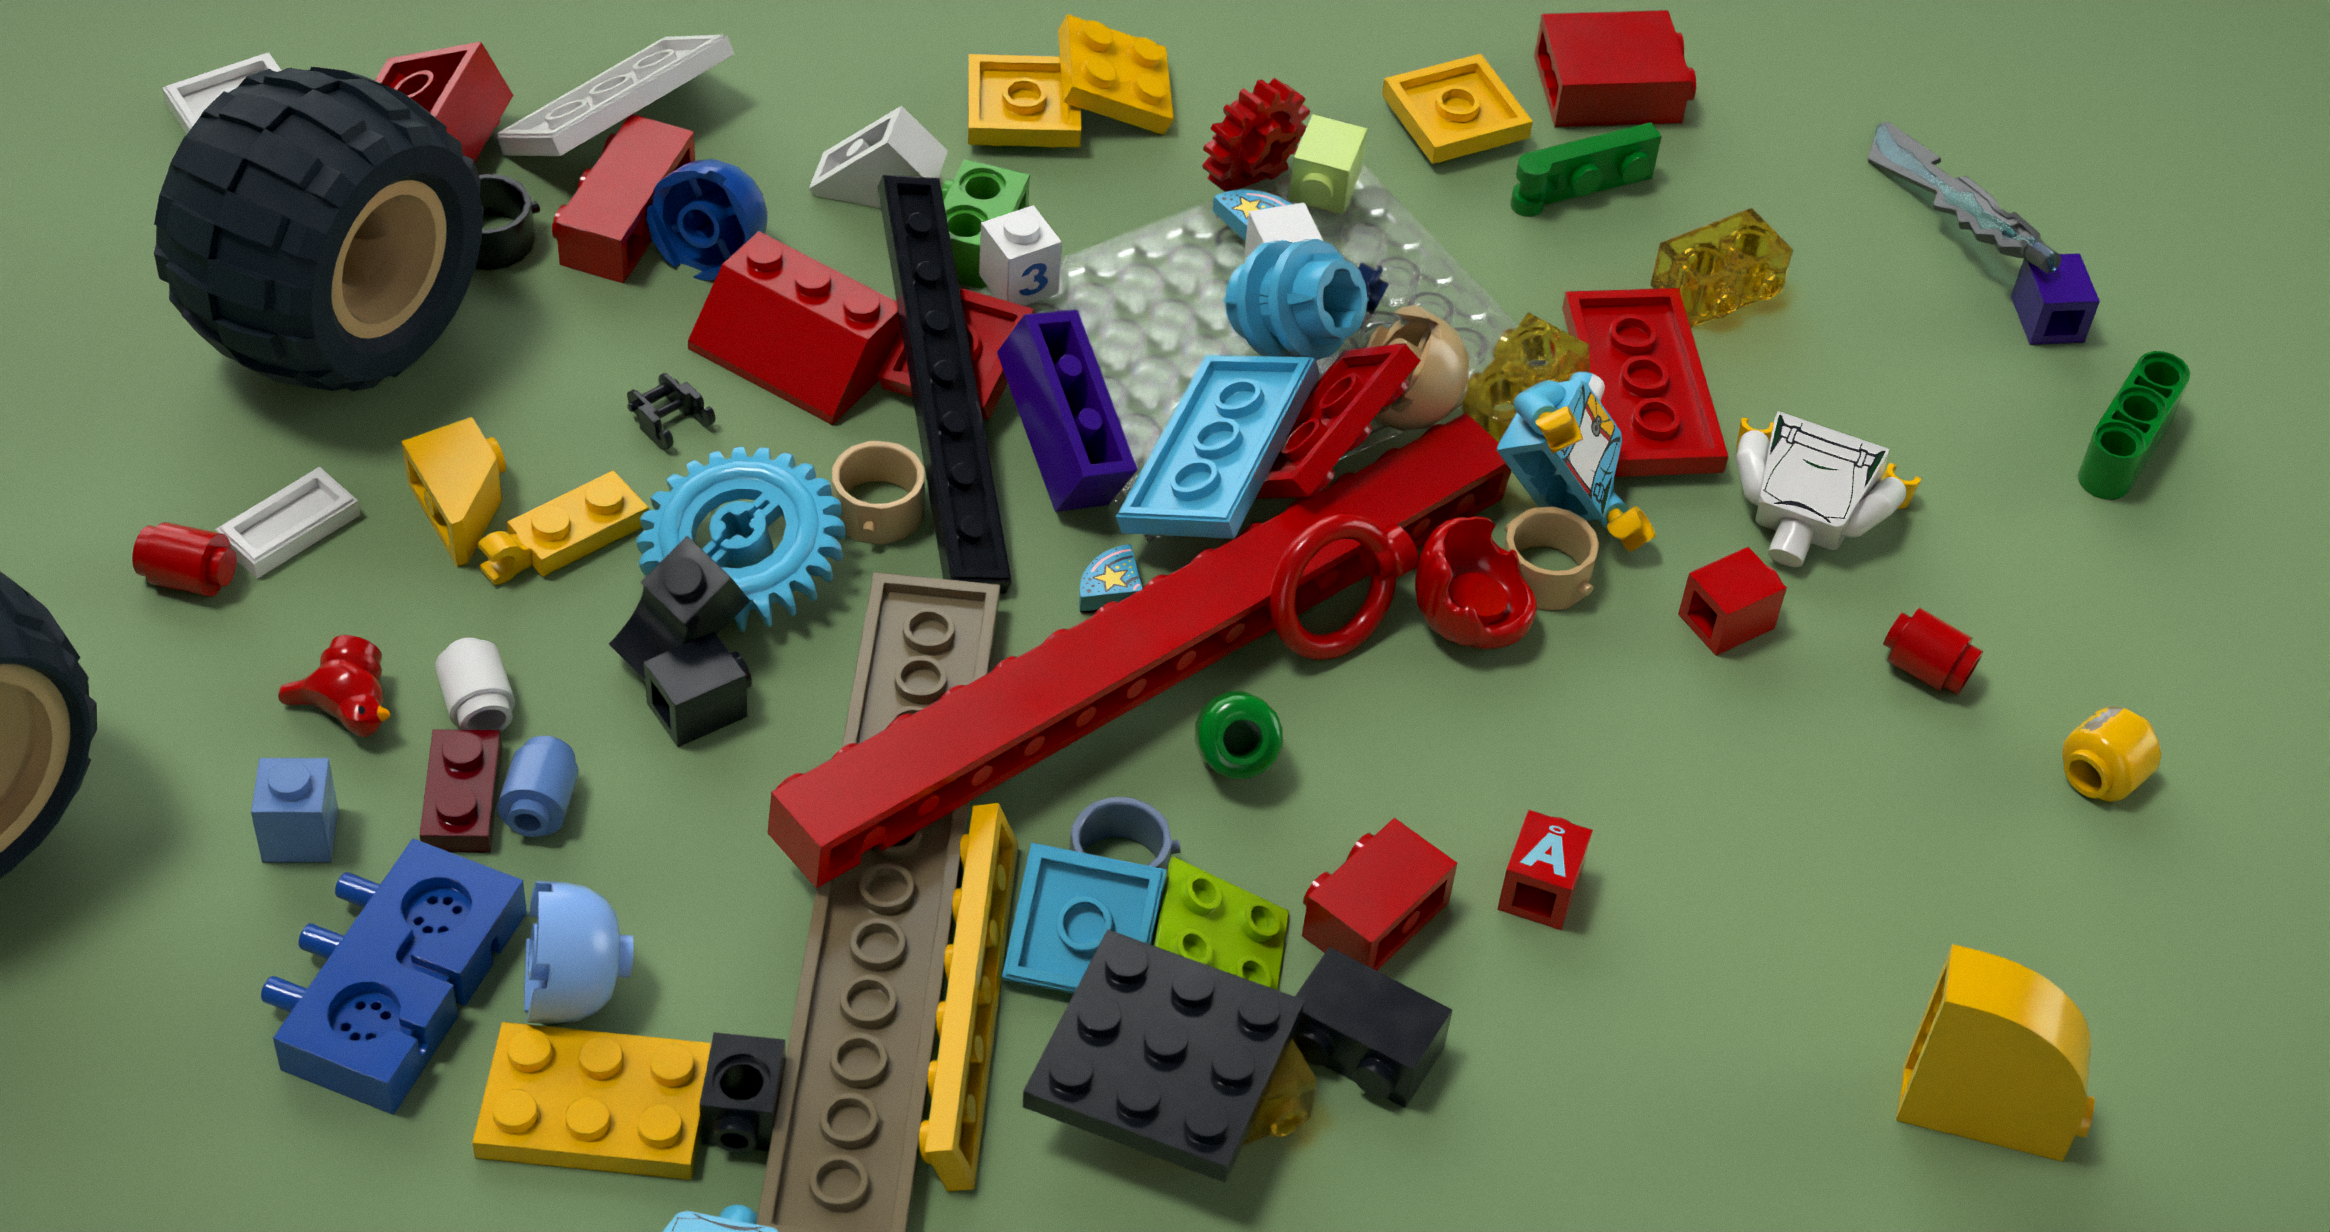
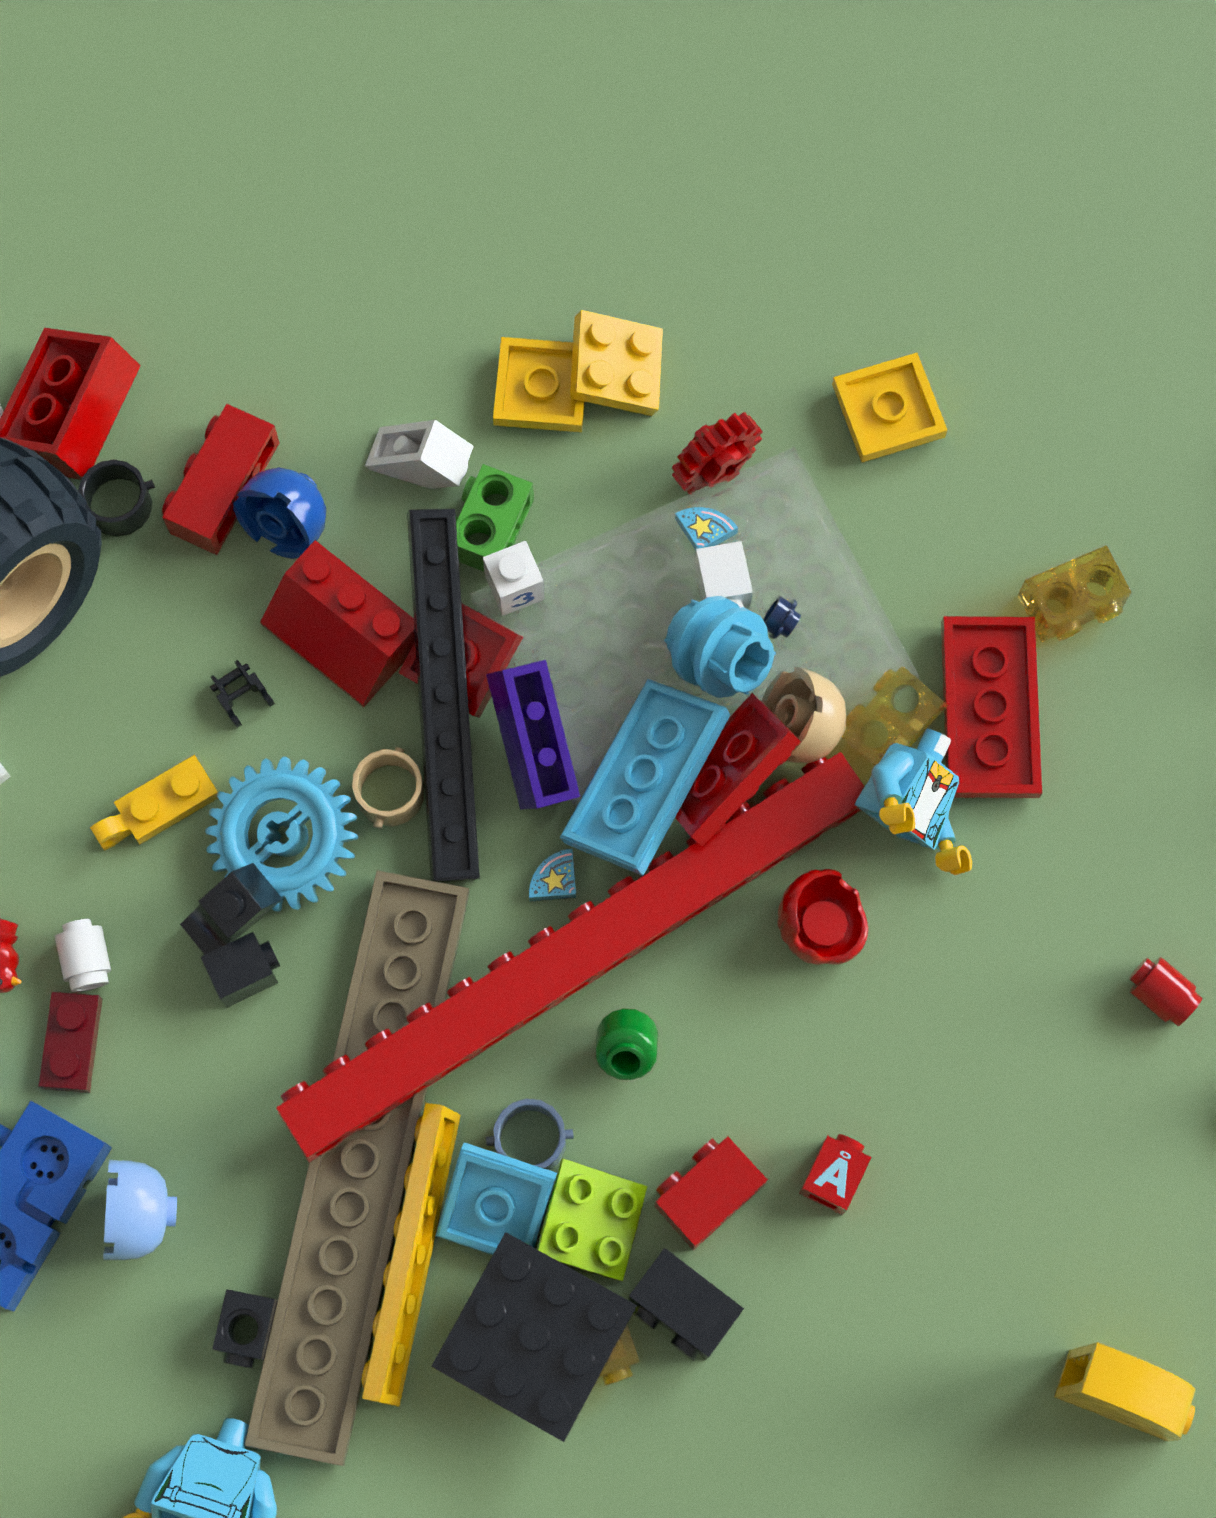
camera: 10 degrees right, 25 degrees up
(456, 483) = (79, 764): yellow slope -> none
(538, 787) = (123, 1050): medium blue brick -> none
(593, 1101) = (147, 1315): yellow plate -> none
(613, 95) = (217, 374): white tile -> none
(1327, 164) = (769, 486): yellowish green brick -> none
(1385, 557) = (755, 892): red piece -> none
(1561, 531) = (900, 855): tan piece -> none
(1584, 167) = (982, 481): green plate -> none
(1613, 68) = (1025, 370): red brick -> none
(1732, 600) = (1021, 933): red brick -> none
(1815, 485) = (1103, 829): white torso -> none

